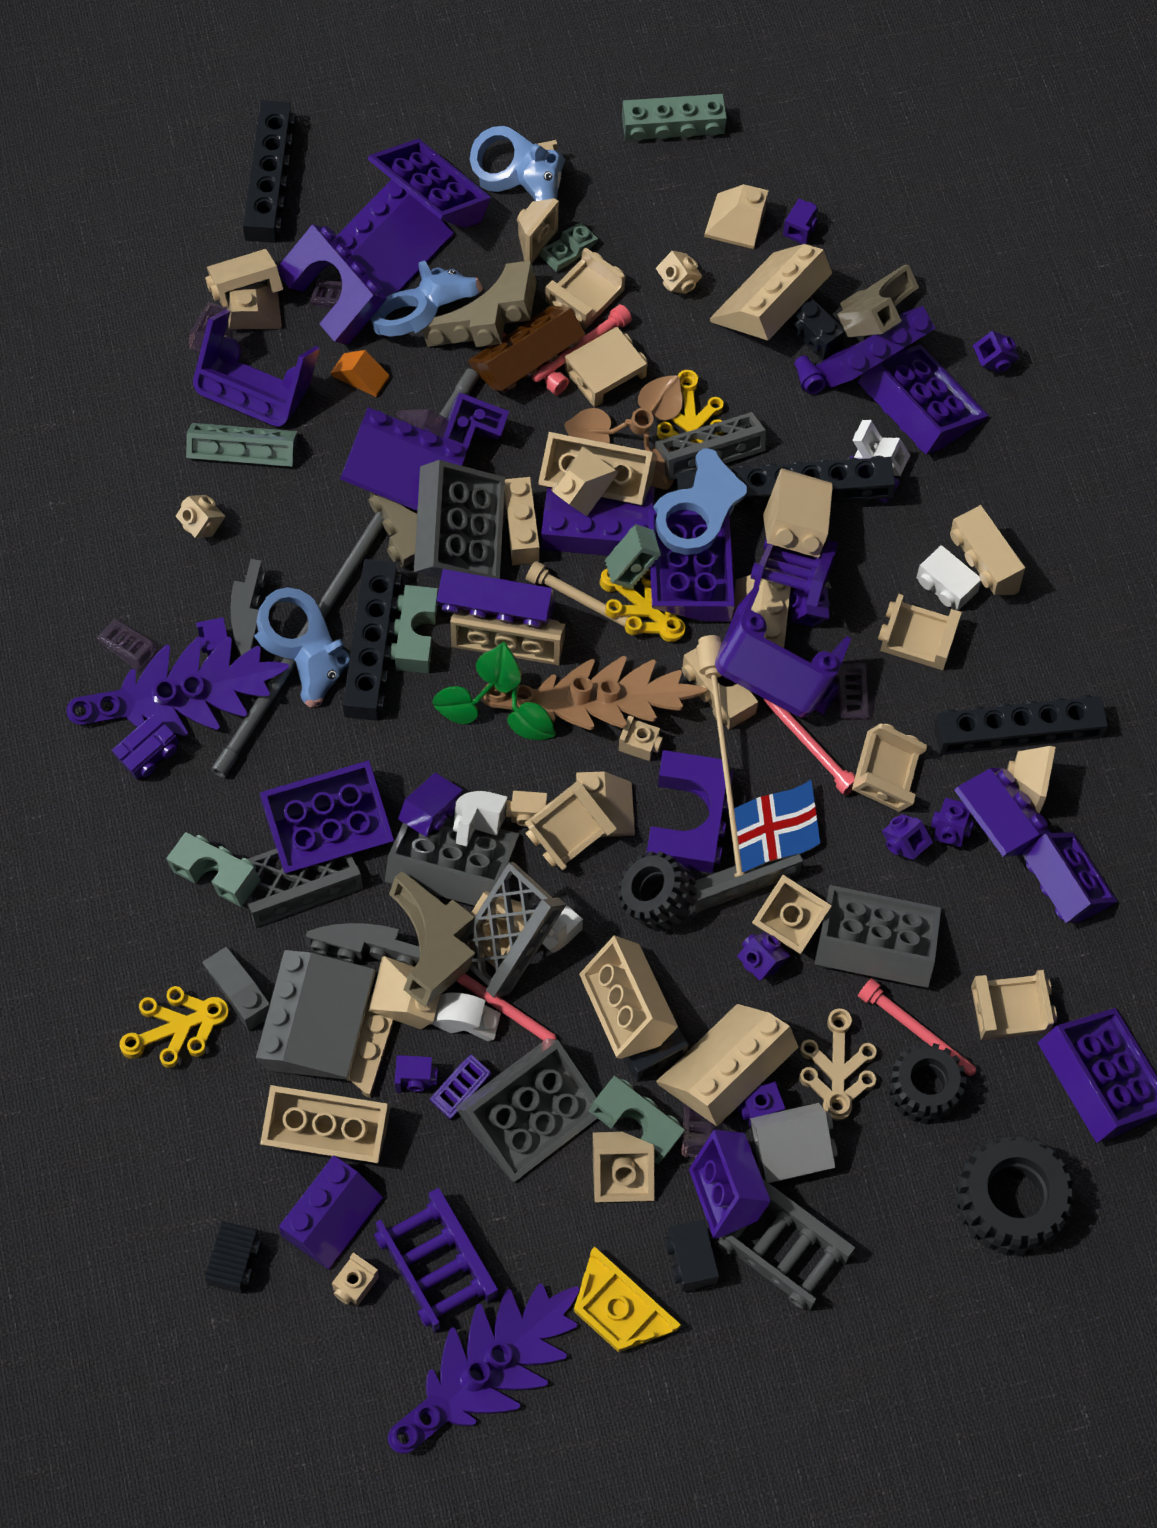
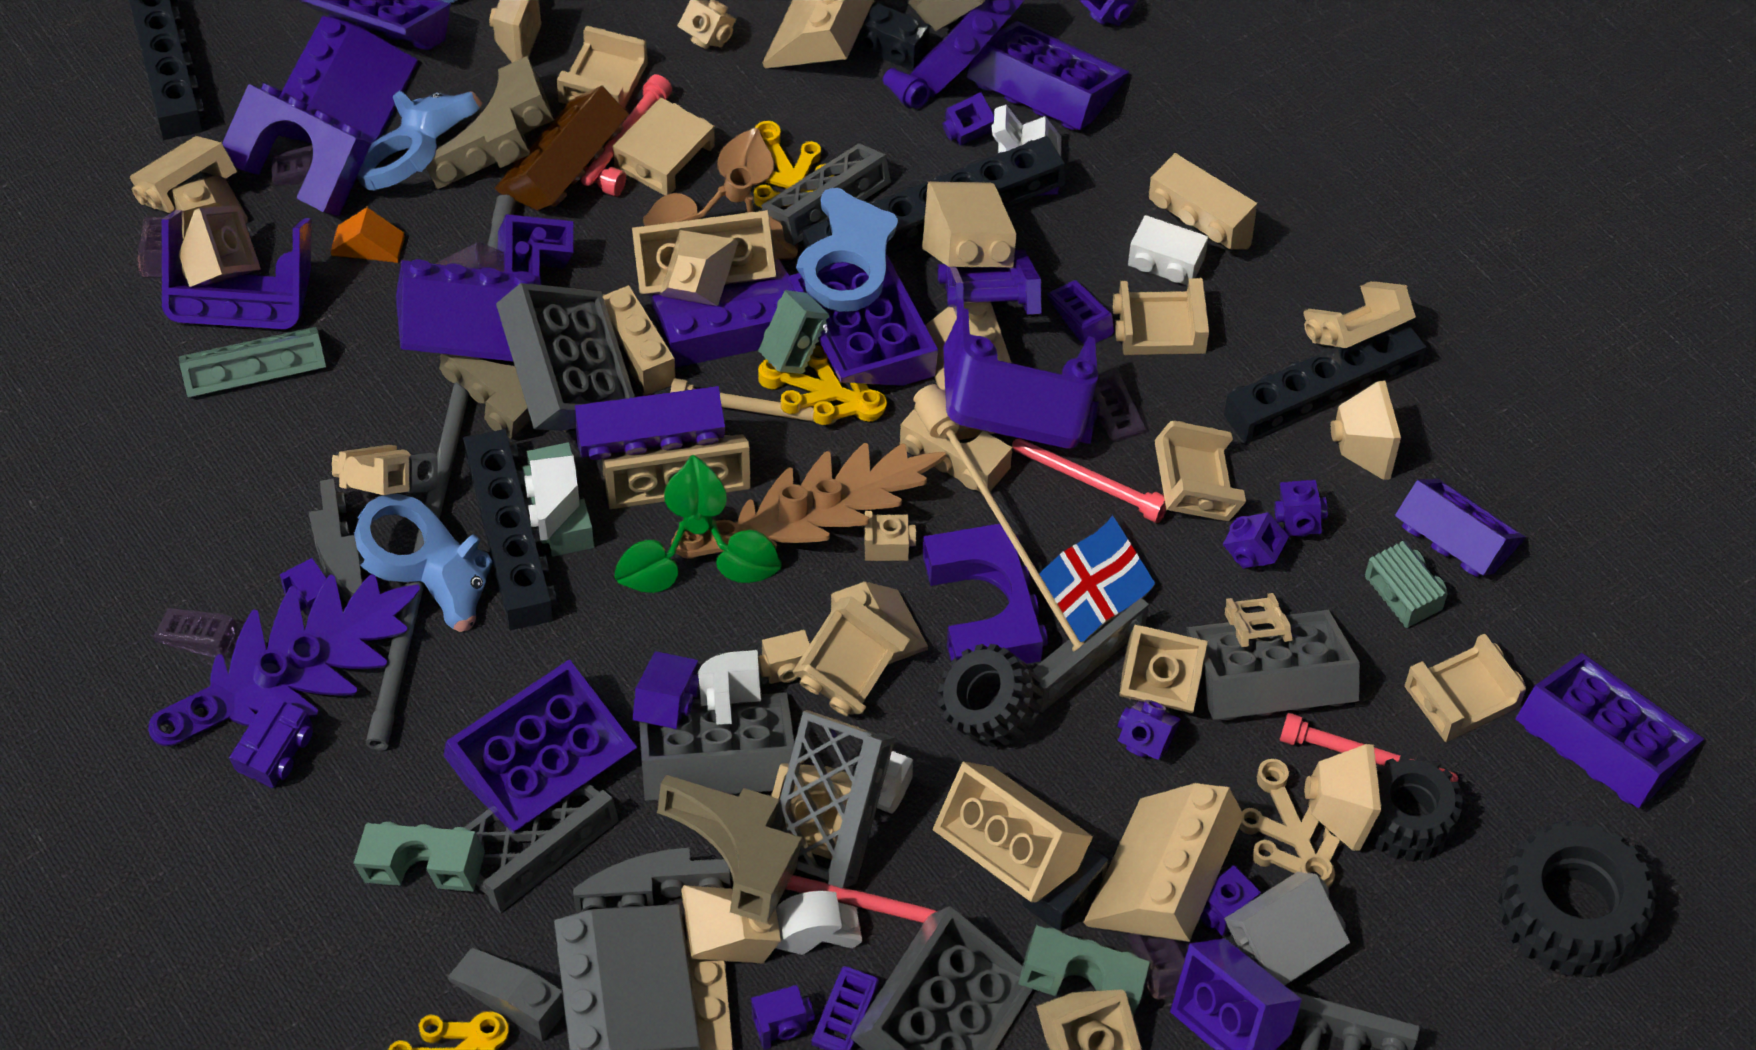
camera: 20 degrees left, 10 degrees down
(200, 516) = (233, 453): tan brick -> none
(247, 347) = (217, 246): none -> tan slope
(299, 565) = (384, 470): none -> tan hips
(409, 627) = (555, 493): none -> white slope
(569, 247) = (563, 35): sand green slope -> none
(806, 614) = (1021, 330): dark purple brick -> none
(850, 411) = (970, 110): none -> dark purple brick
(867, 621) = (1074, 312): none -> dark purple slope
(870, 895) = (1243, 621): none -> tan piece
(879, 1057) = (1346, 794): none -> tan slope
(1002, 811) = (1354, 473): dark purple slope -> none
(1006, 908) = (1406, 583): none -> sand green brick
(1069, 689) = (1385, 308): none -> tan panel

